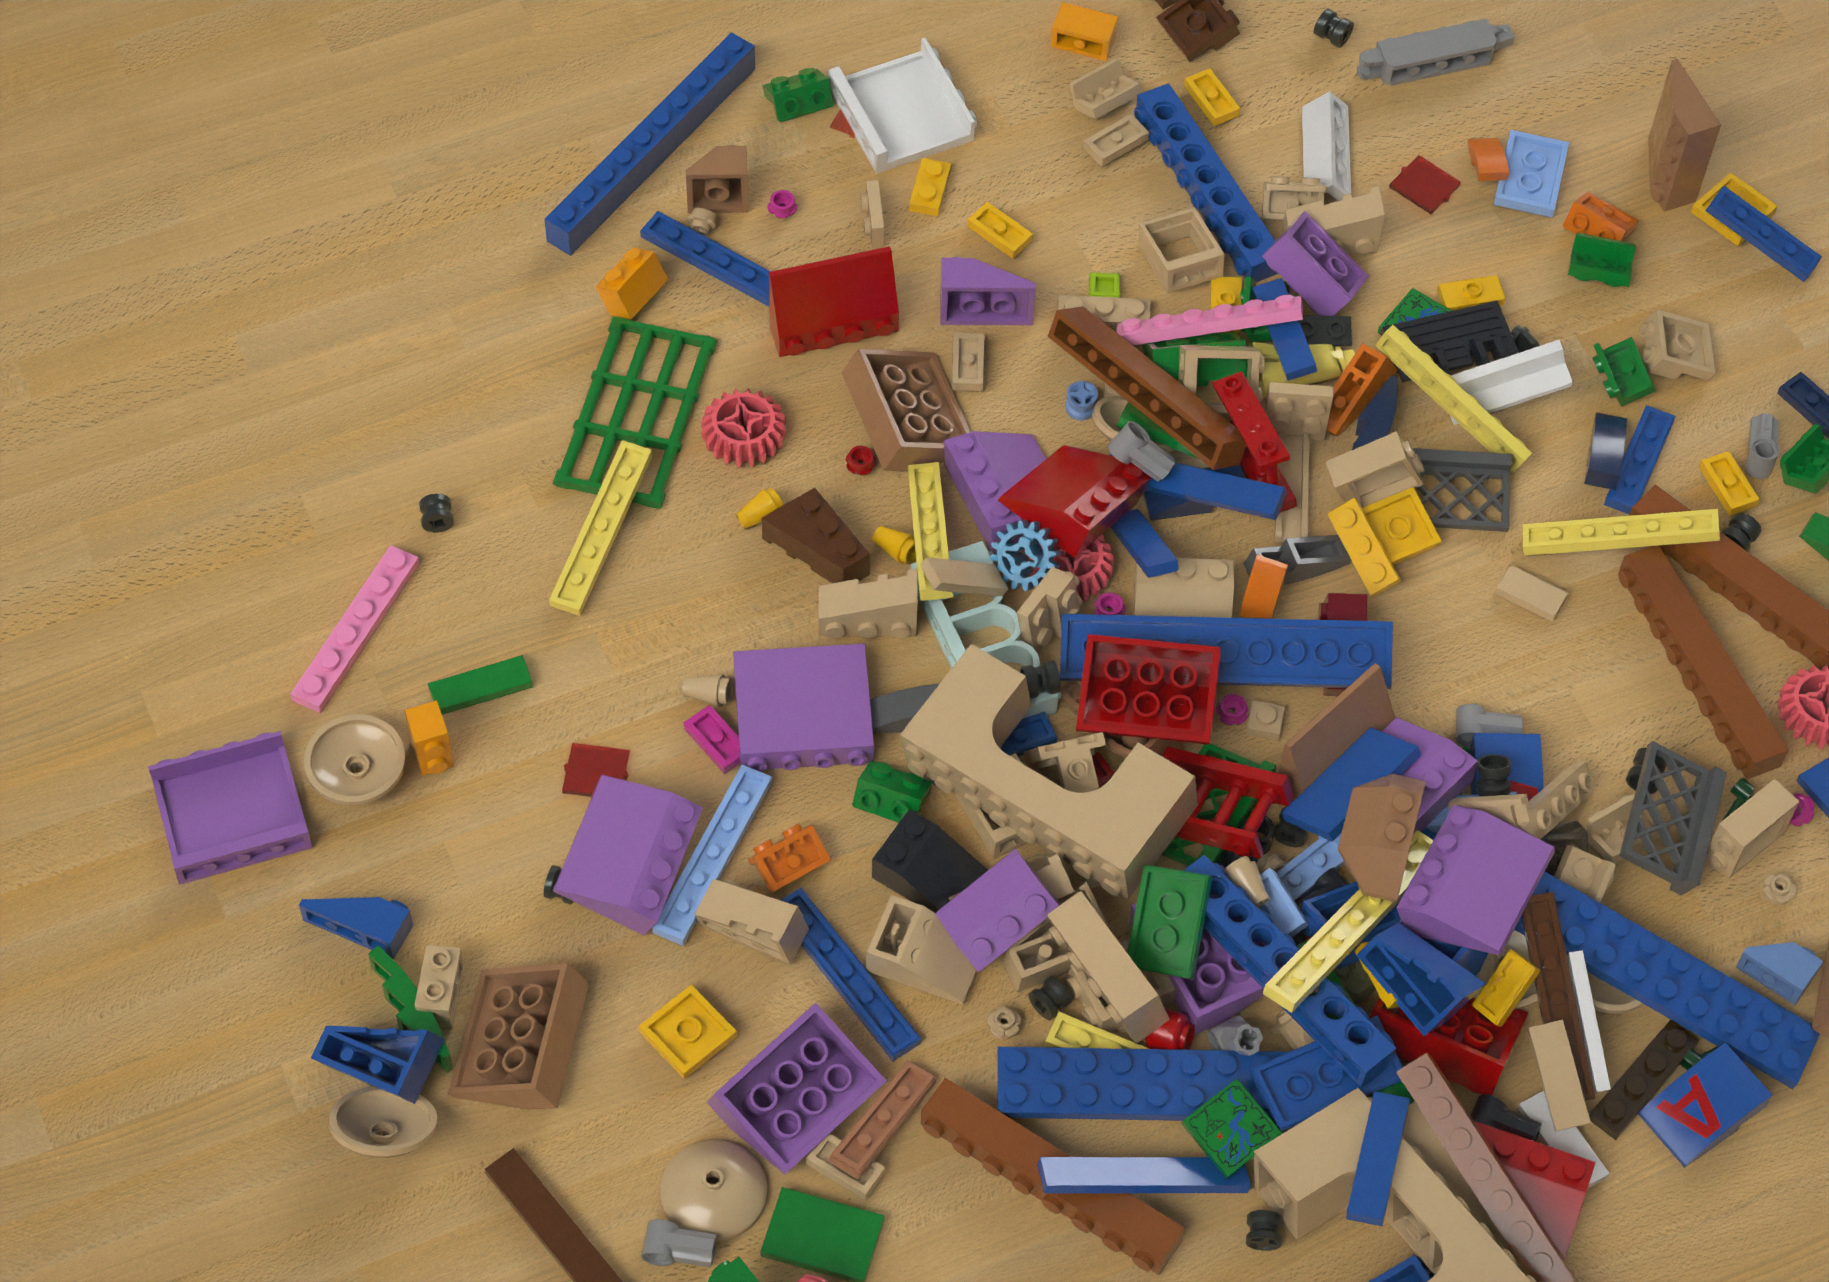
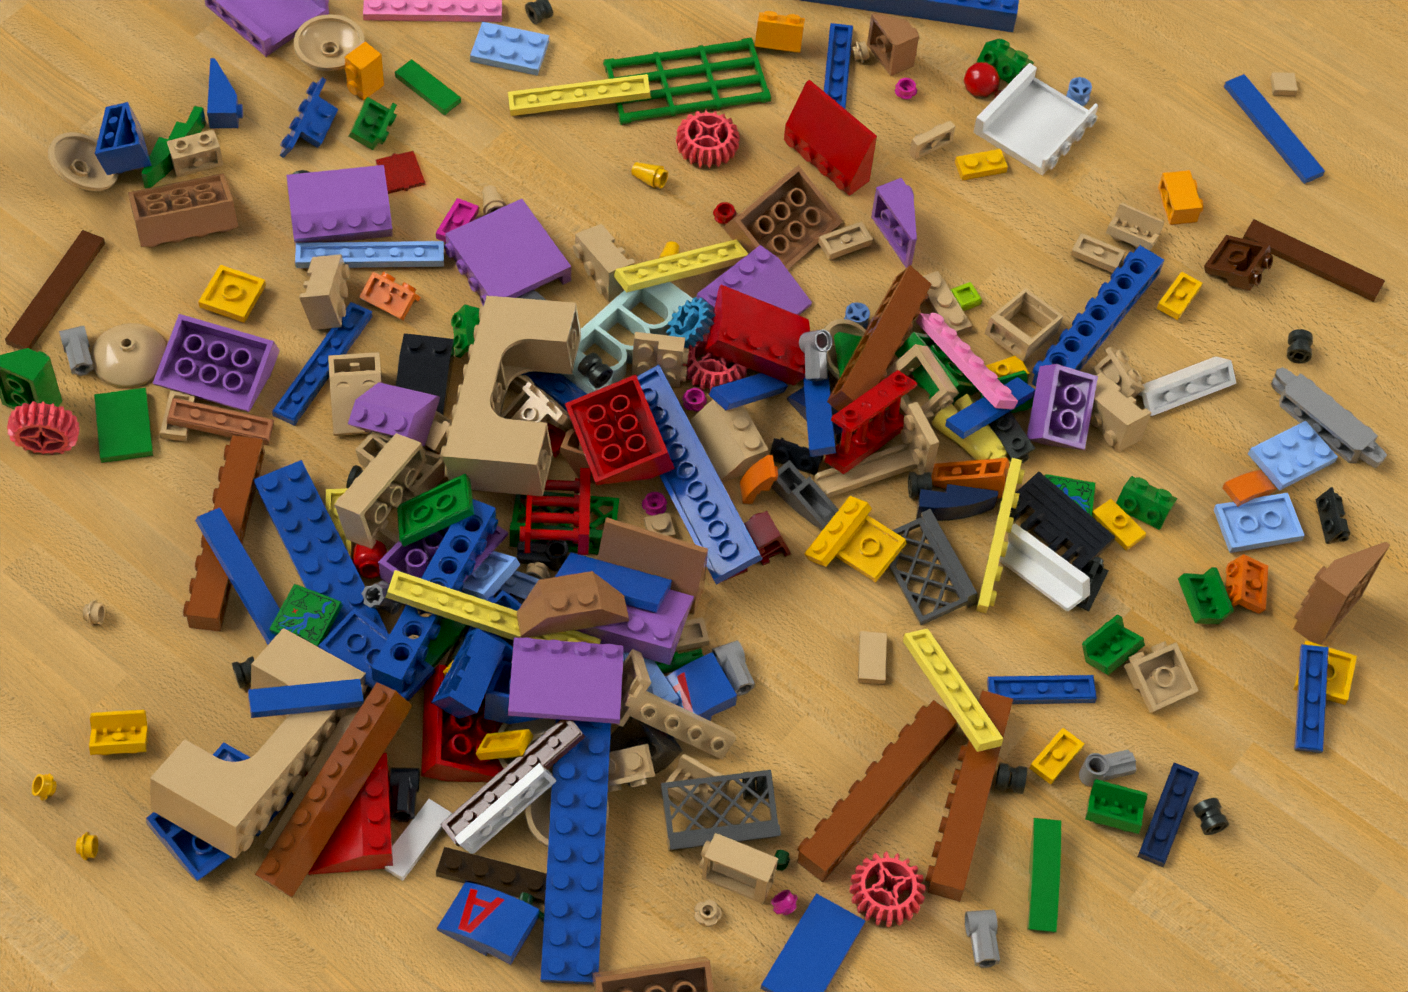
camera: 60 degrees right, 0 degrees up
(458, 835) = (313, 121): none -> blue bracket
(472, 572) = (509, 48): none -> light blue plate
(510, 765) = (372, 123): none -> green bracket
(814, 127) = (981, 79): none -> red hair
(818, 537) = (645, 212): reddish brown wedge -> none
(884, 47) = (1079, 90): none -> medium blue wheel
(963, 577) = (643, 290): tan tile -> none
(1000, 230) = (970, 216): yellow plate -> none
(1000, 1030) = (331, 469): tan plate -> none
(1242, 539) = (799, 456): none -> black hinge
(1247, 876) = (496, 548): tan cone -> none
(1337, 442) = (918, 482): none -> pearl dark grey wheel
(1376, 470) = (898, 507): tan window -> none
(1424, 184) = (1201, 460): clear red piece -> none
(1458, 255) = (1146, 502): none -> green bracket
(1463, 104) = (1292, 455): none -> light blue plate
(1493, 775) = (676, 671): pearl dark grey wheel -> none
(1553, 110) = (1330, 510): none -> pearl dark grey hinge
(1558, 1075) = (454, 807): tan tile -> none
(1606, 451) = (1031, 659): dark blue slope -> none
(1781, 968) = (635, 938): medium blue slope -> none

